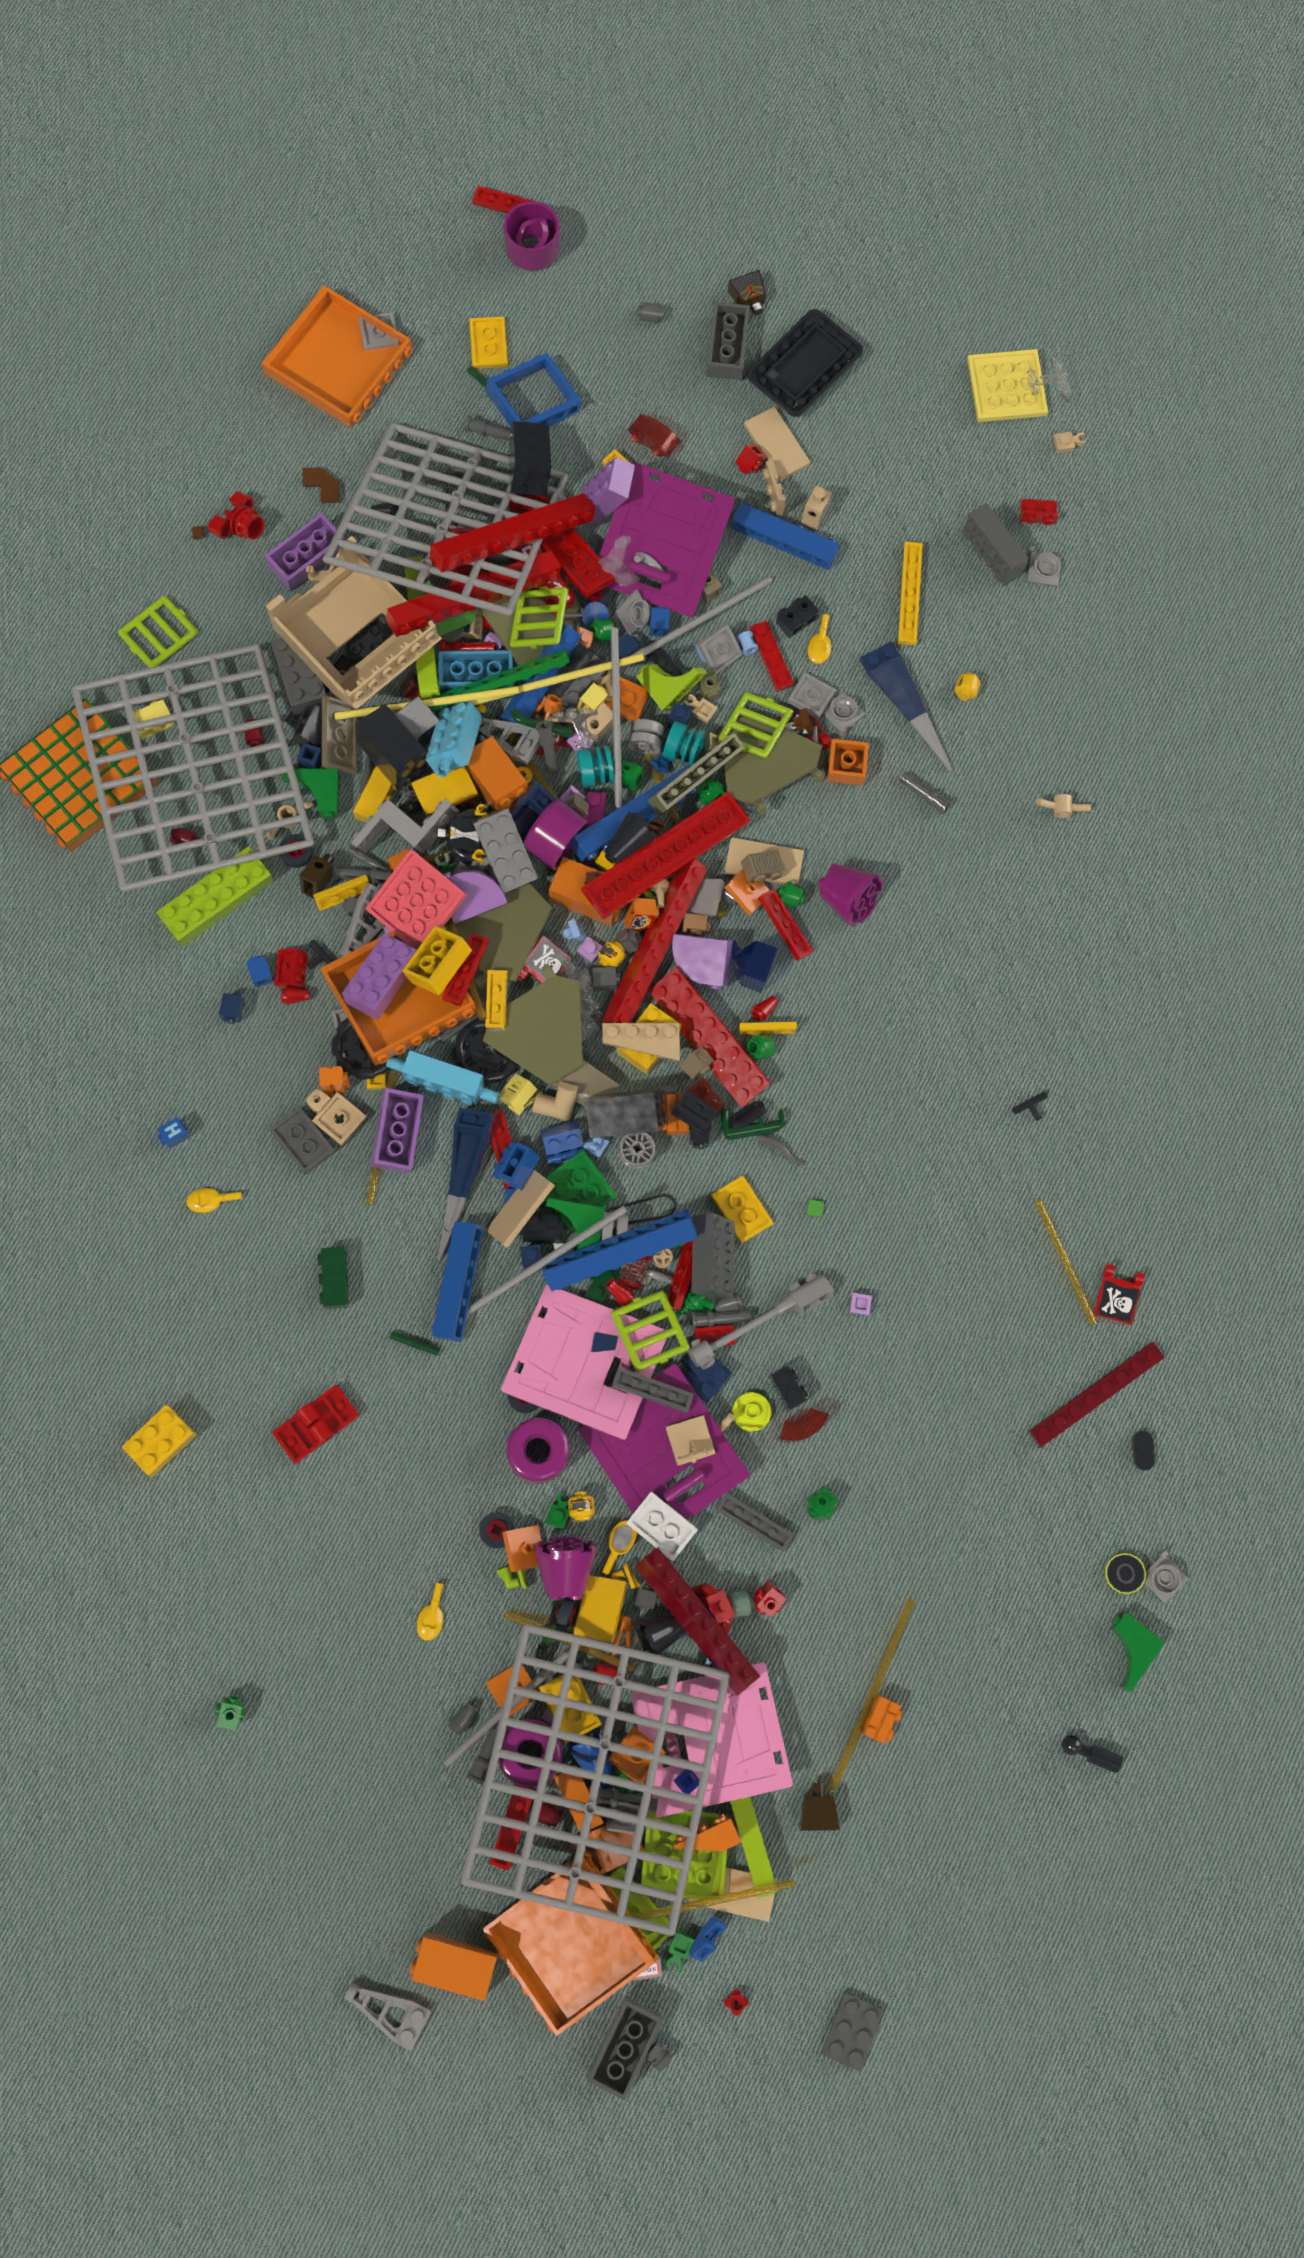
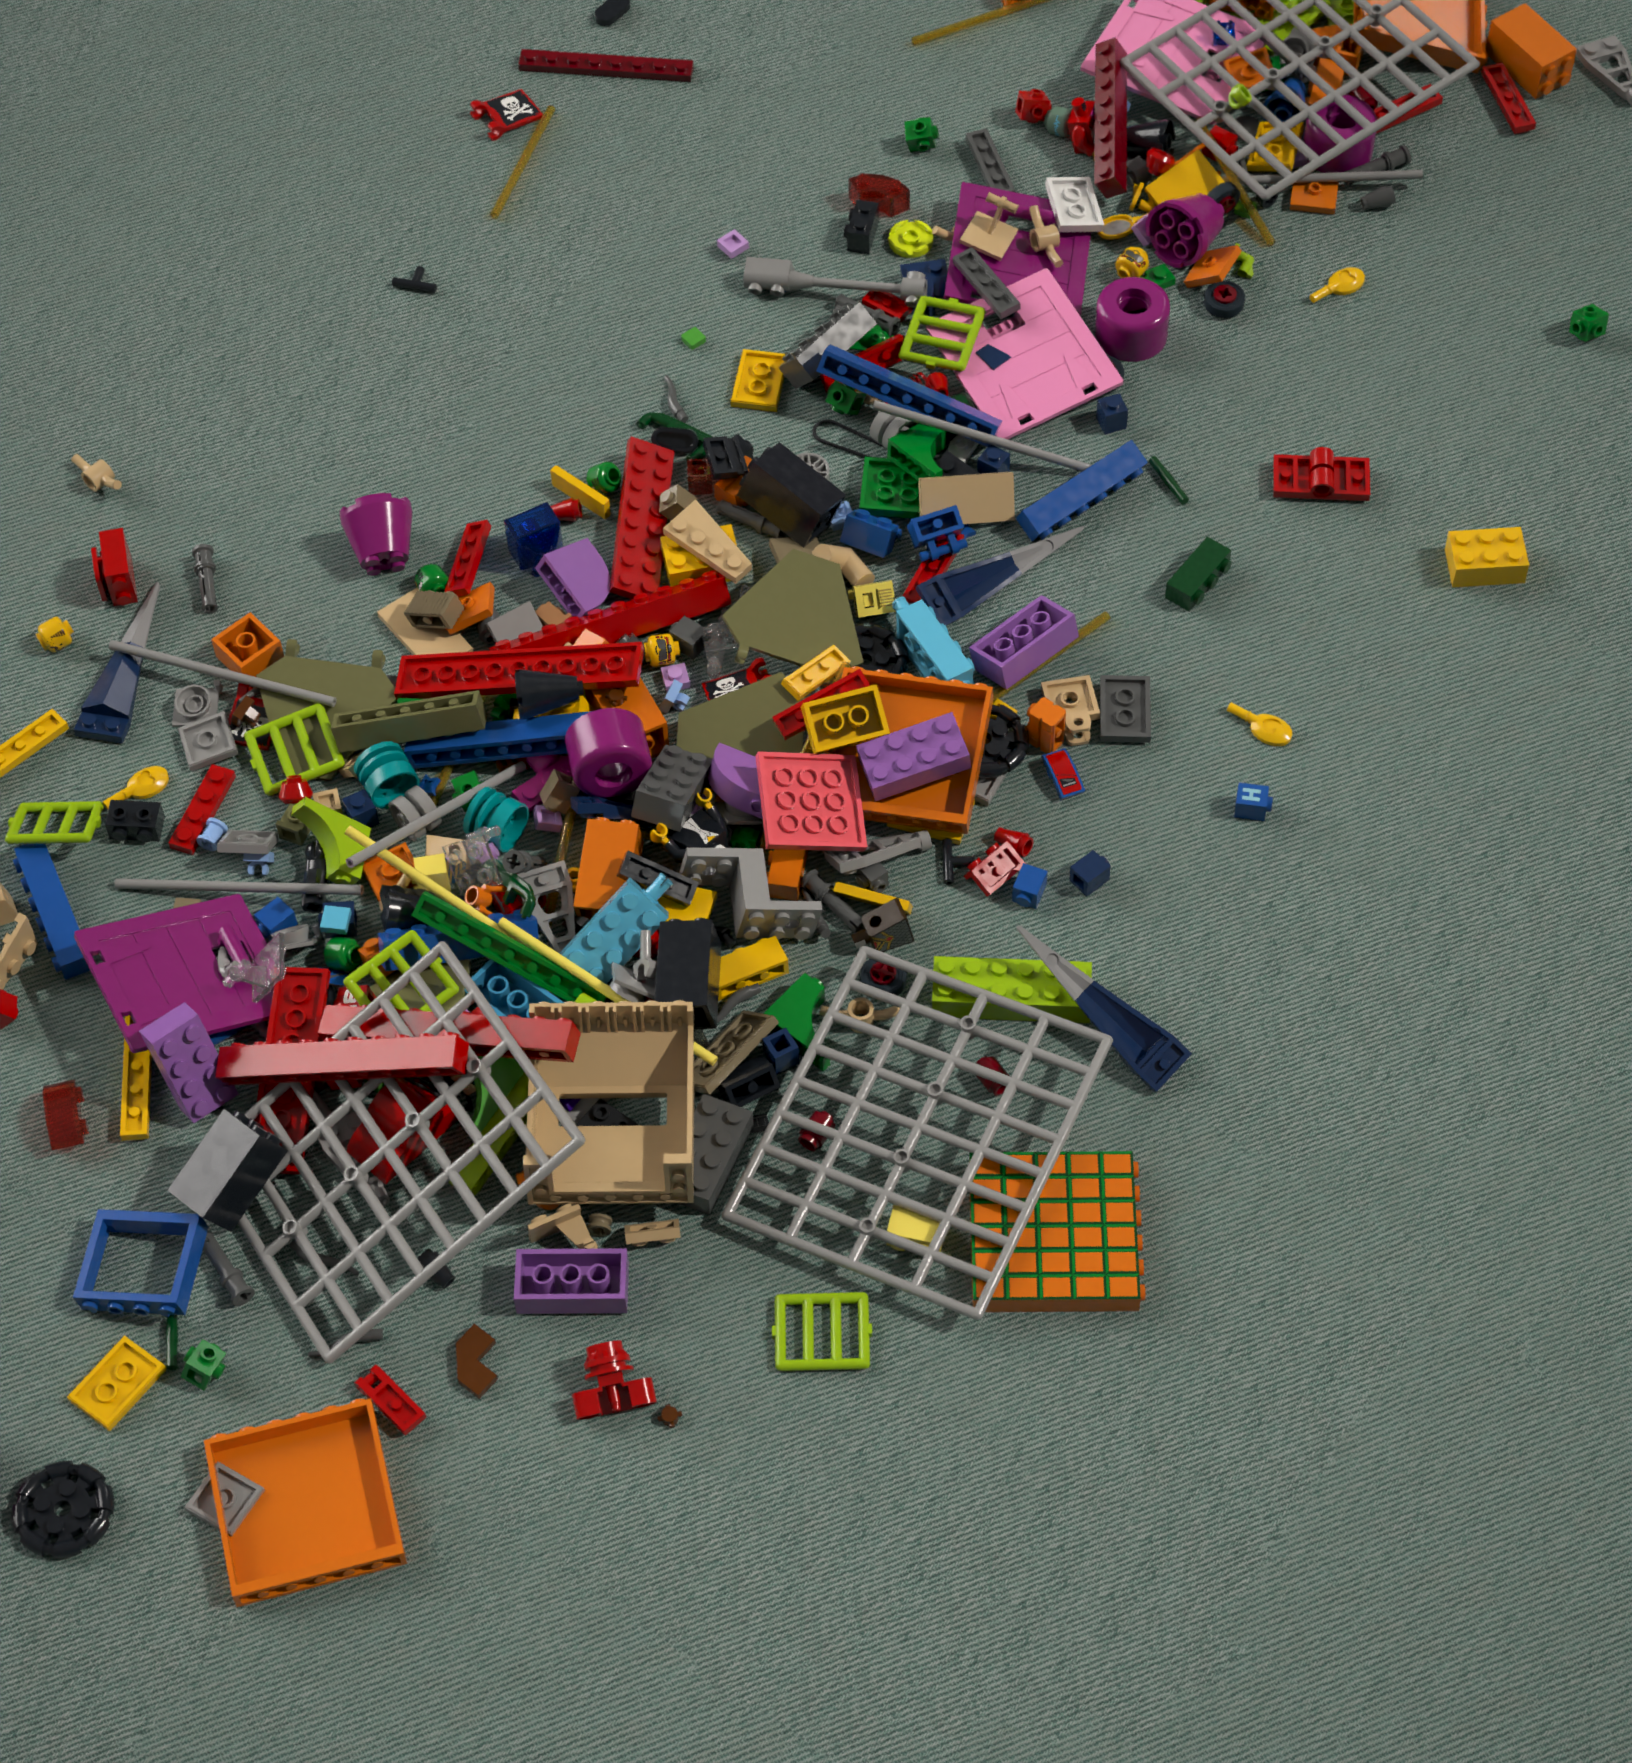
camera: 130 degrees left, 20 degrees down
(113, 915) = (1137, 1040): none -> dark blue plate
(302, 1065) = (1063, 773): none -> slope
(344, 433) = (391, 1400): none -> red plate
(416, 726) = (645, 966): none -> light grey bar
(443, 1908) = (1508, 98): none -> red plate
(447, 261) = (62, 1493): none -> black plate
(450, 375) = (203, 1364): none -> green brick
(458, 782) = (646, 871): none -> black plate
(490, 1362) = (1112, 413): none -> dark blue brick
(602, 1549) = (1140, 231): none -> lavender plate
(608, 1698) = (1241, 95): none -> lime tile
(624, 636) = (335, 919): none -> medium azure tile
(631, 1610) = (1159, 161): none -> red cone
(654, 1473) = (1044, 237): none -> tan piece
(727, 700) = (294, 790): none -> red cone
(817, 564) = (63, 835): none -> lime bar
(840, 731) = (222, 673): none -> light grey piece
(977, 747) = (114, 568): none -> red brick

